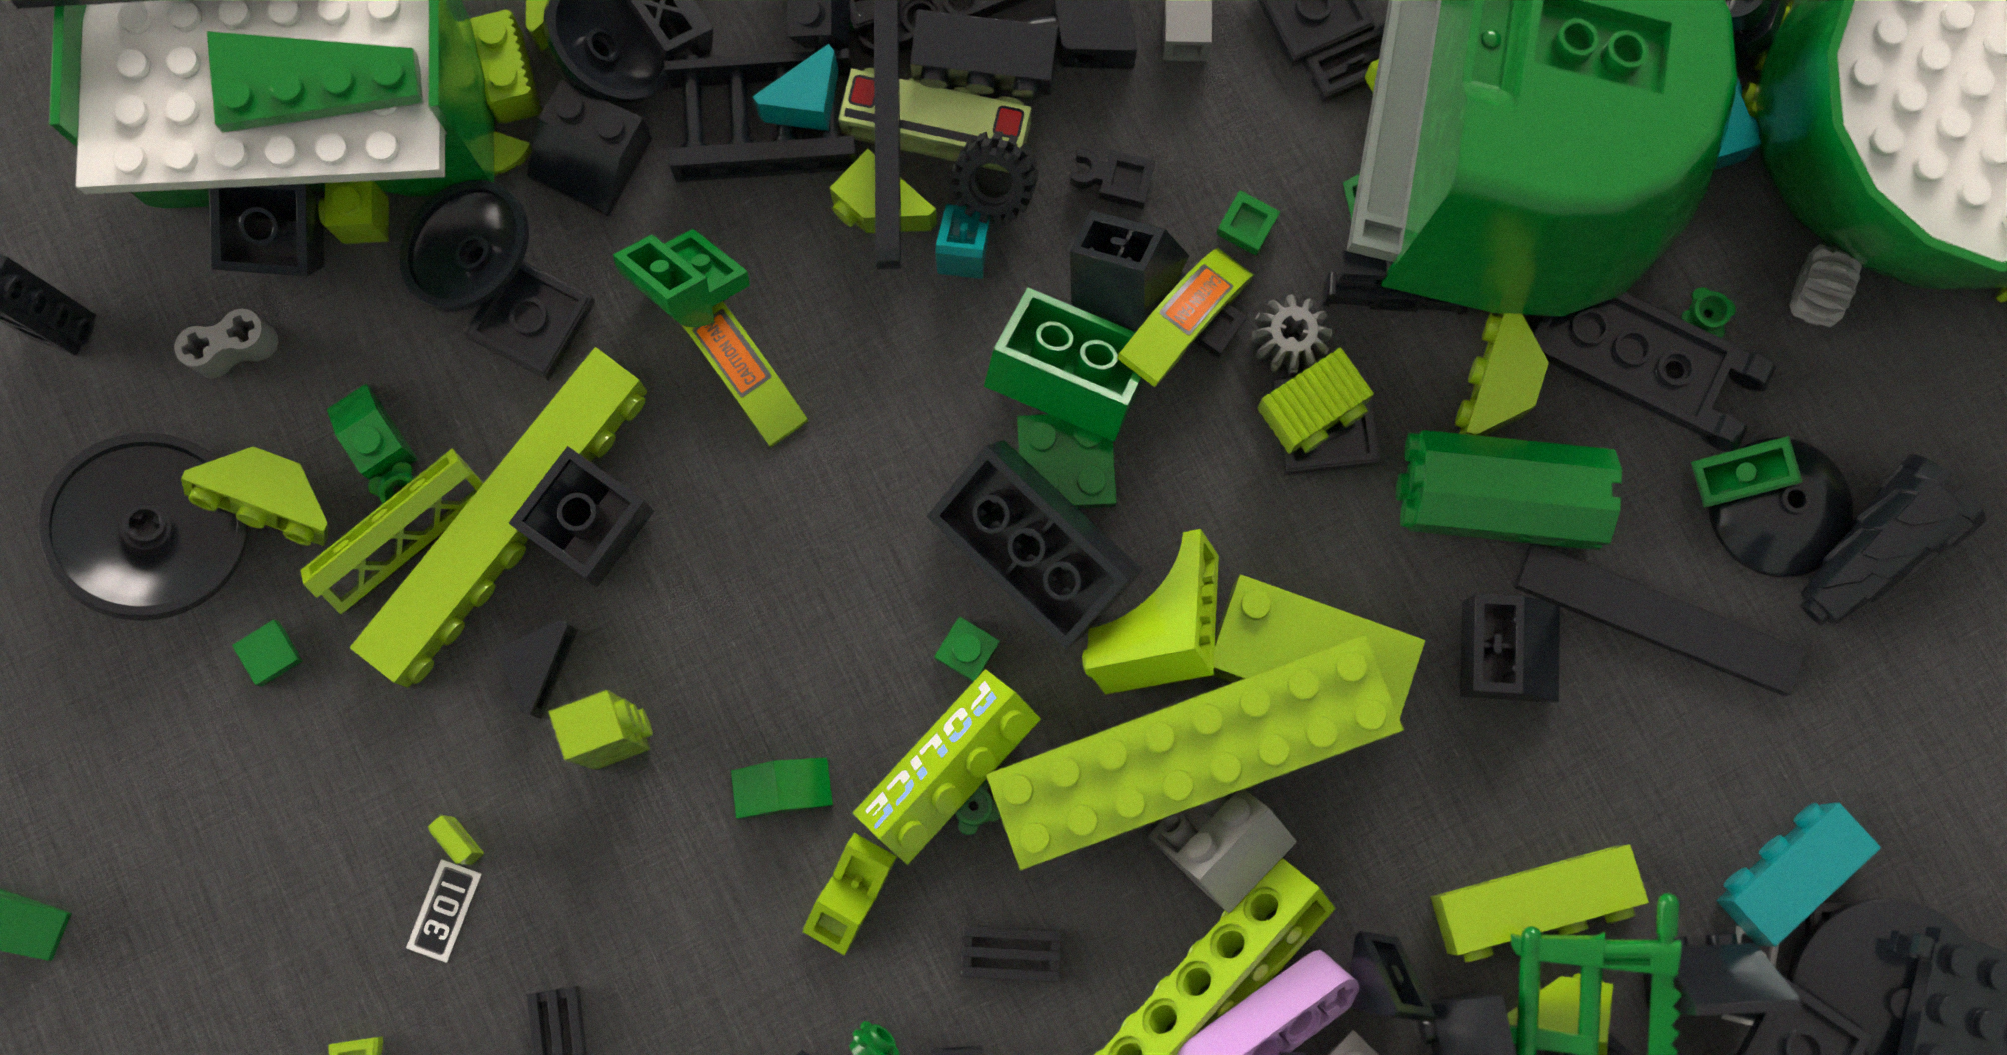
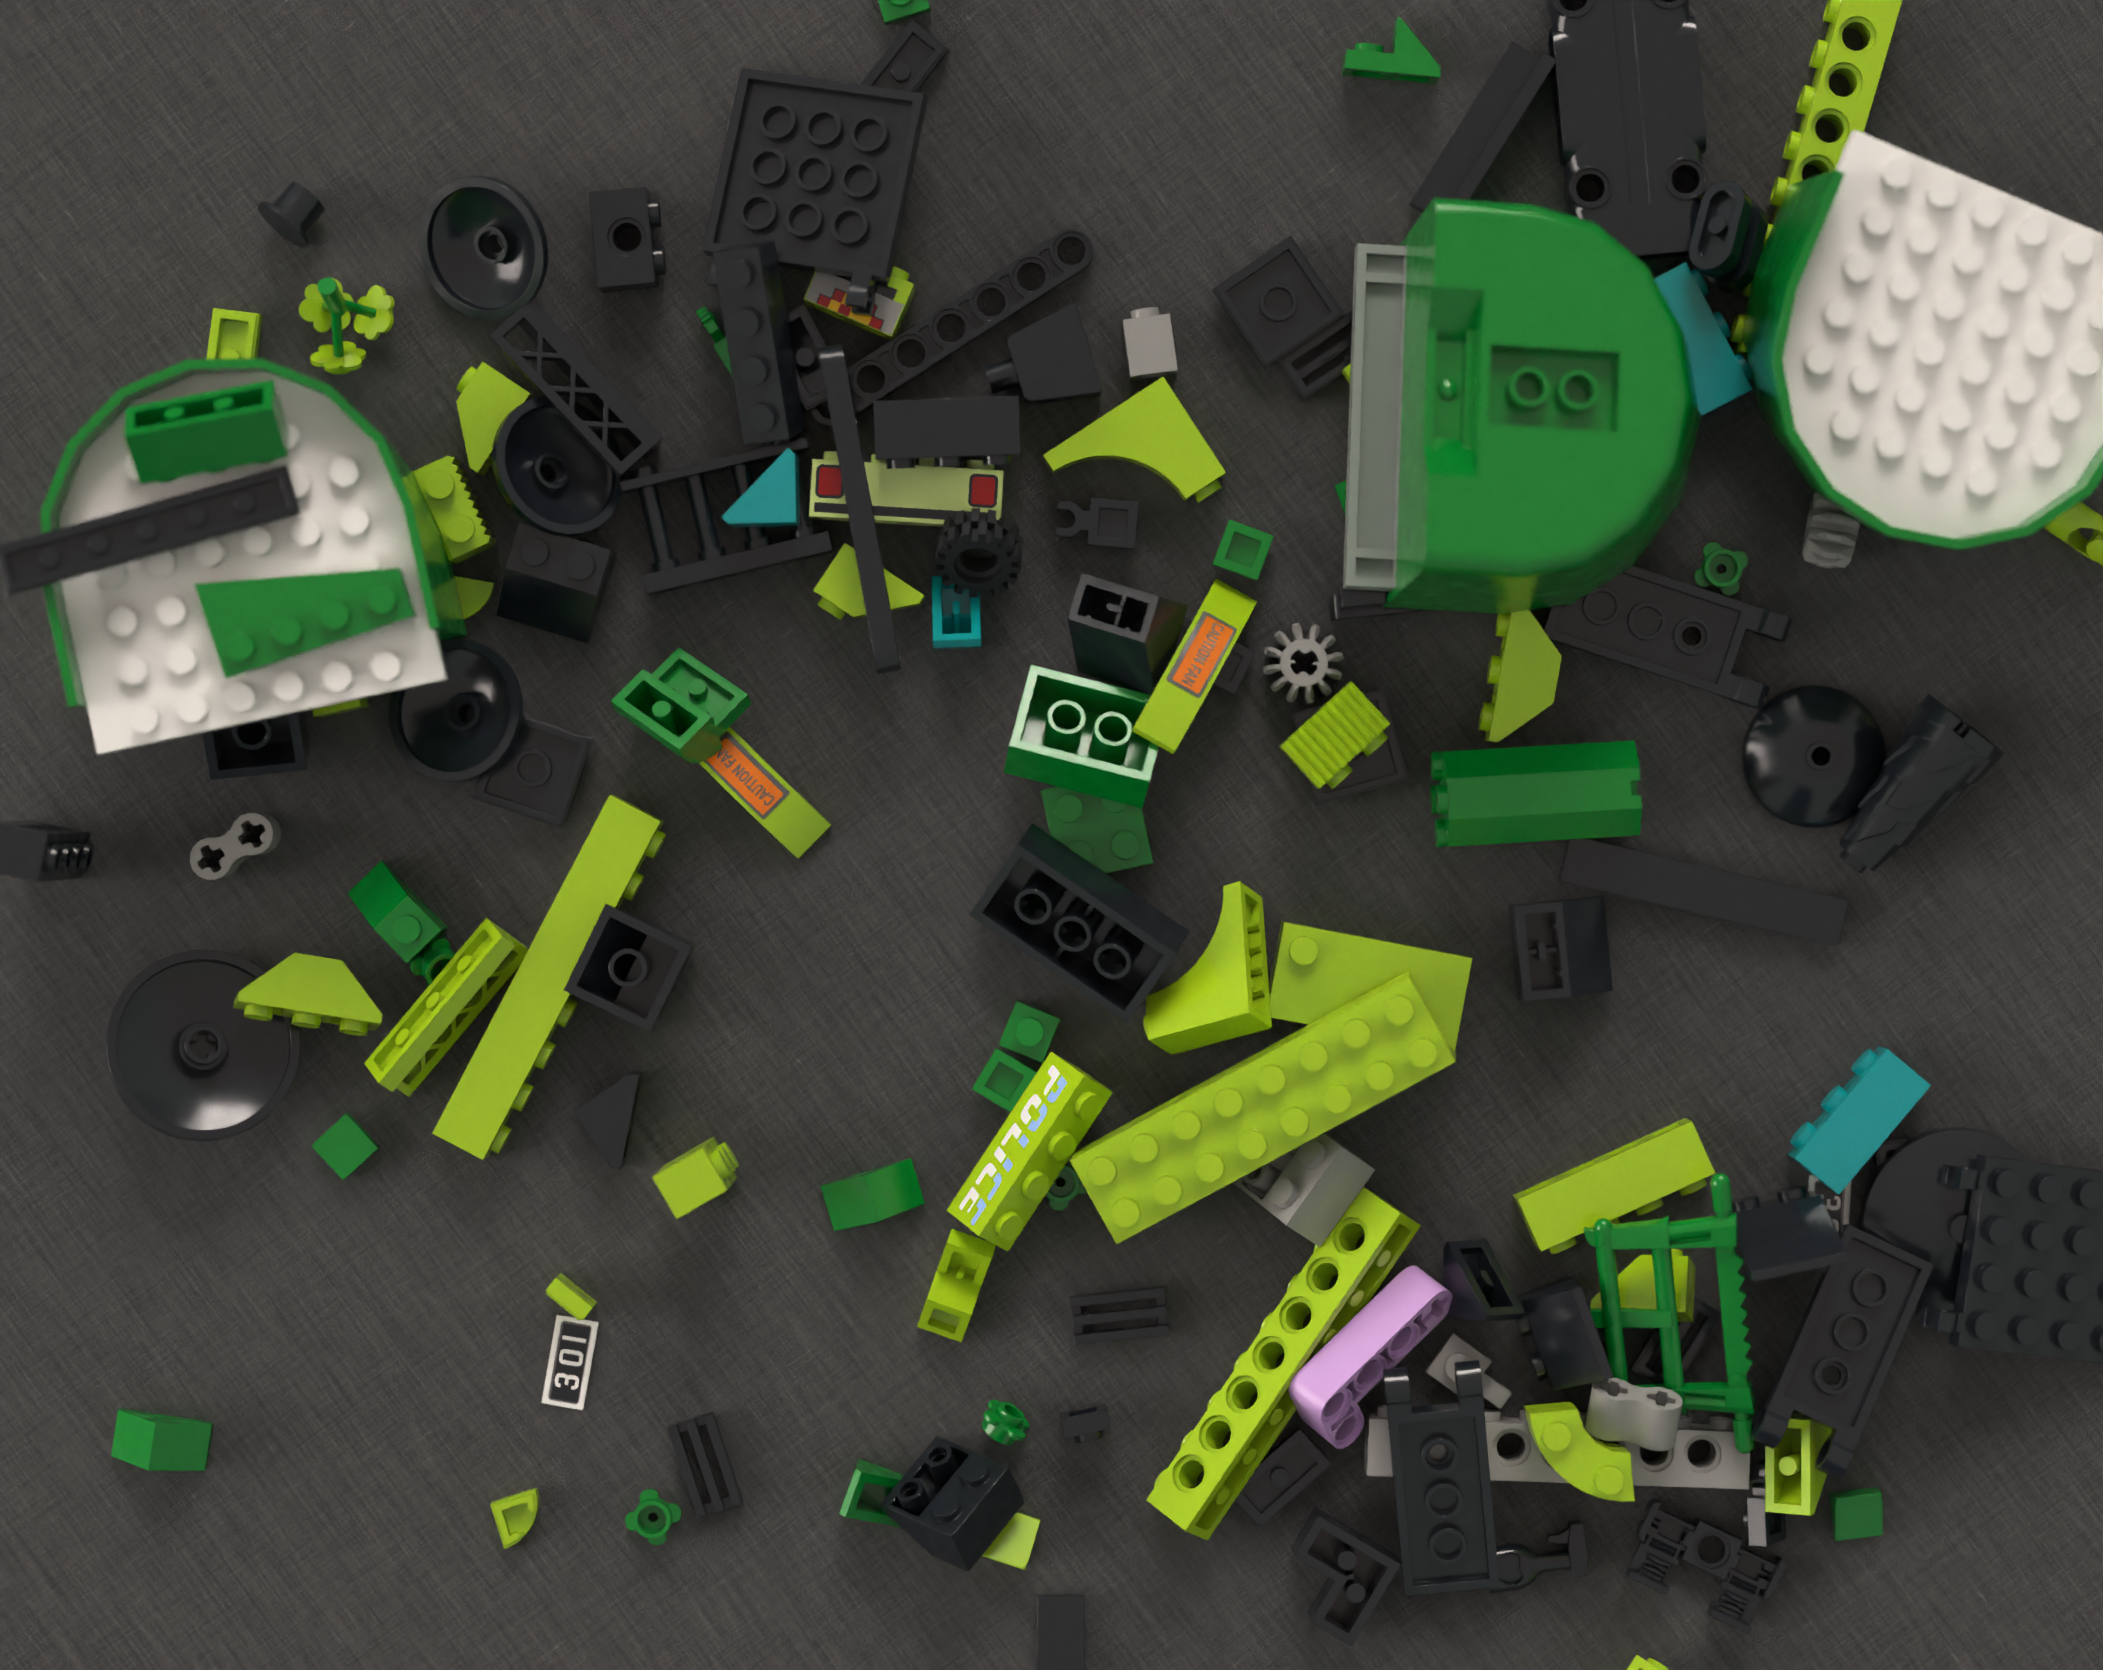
camera: 10 degrees left, 10 degrees up
(932, 691) = (1004, 1080): none -> green plate
(1172, 101) = (1152, 433): none -> lime arch
(1746, 472) = (1770, 733): green slope -> none

